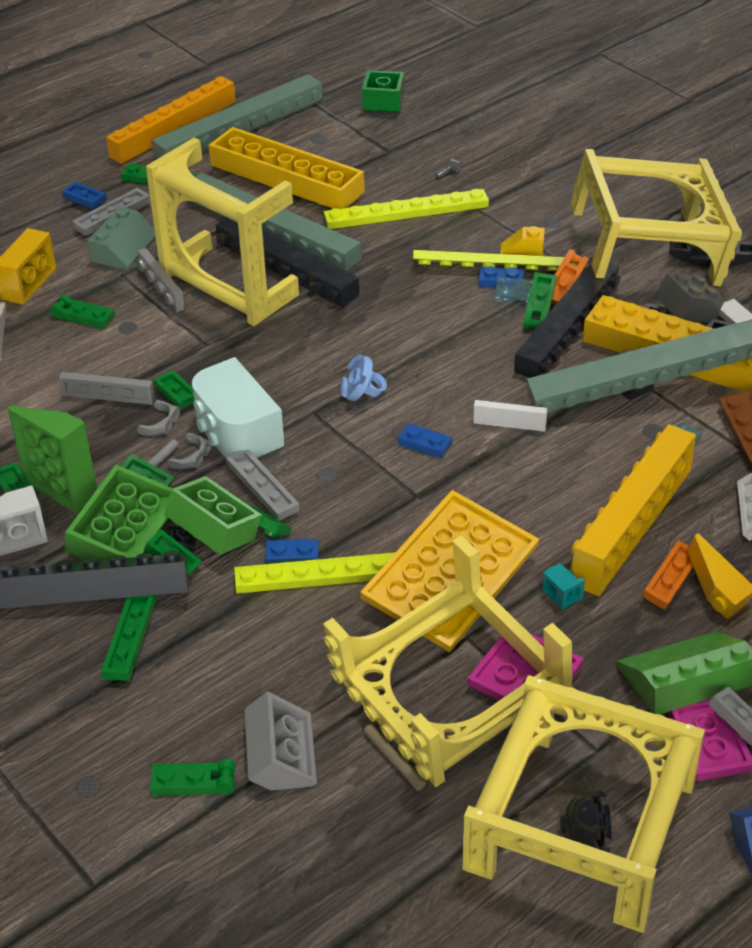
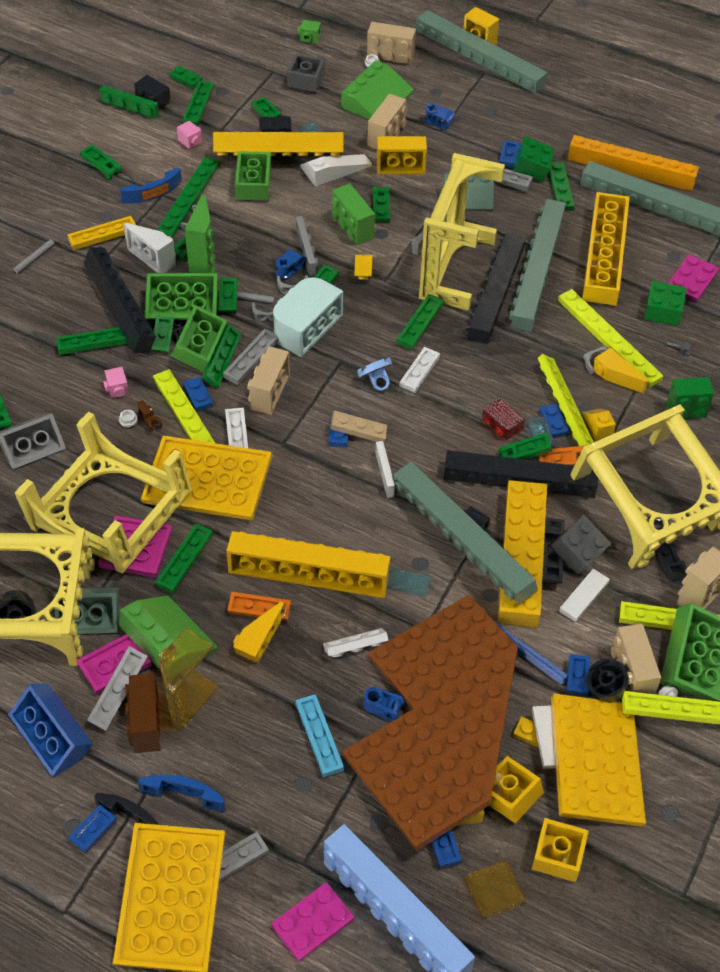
camera: 65 degrees right, 10 degrees up
(93, 329) = (353, 214): none -> bright green brick
(114, 175) = (533, 159): none -> green brick
(126, 411) = (289, 264): none -> blue piece
(178, 348) = (363, 266): none -> yellow slope
(228, 625) = (116, 382): none -> bright pink brick
(296, 630) = (128, 418): none -> white plate
(298, 330) = (420, 321): none -> green plate
(305, 606) = (146, 414): none -> reddish brown plate
(325, 469) = (269, 380): none -> tan brick
(358, 343) = (419, 369): none -> white tile
(360, 135) = (694, 275): none -> dark pink plate
(378, 527) = (236, 427): none -> white plate
(388, 157) = (665, 303): none -> green brick
(429, 229) = (588, 356): none -> light grey cap
(436, 418) = (358, 426): none -> tan plate
(462, 213) = (619, 371): none -> yellow slope
(483, 308) = (502, 418): none -> clear red brick
(532, 175) = (693, 395): none -> green brick
(562, 586) = (218, 545): teal brick -> none
(585, 640) = (184, 558): none -> green plate
(608, 760) = (97, 611): none -> sand green slope

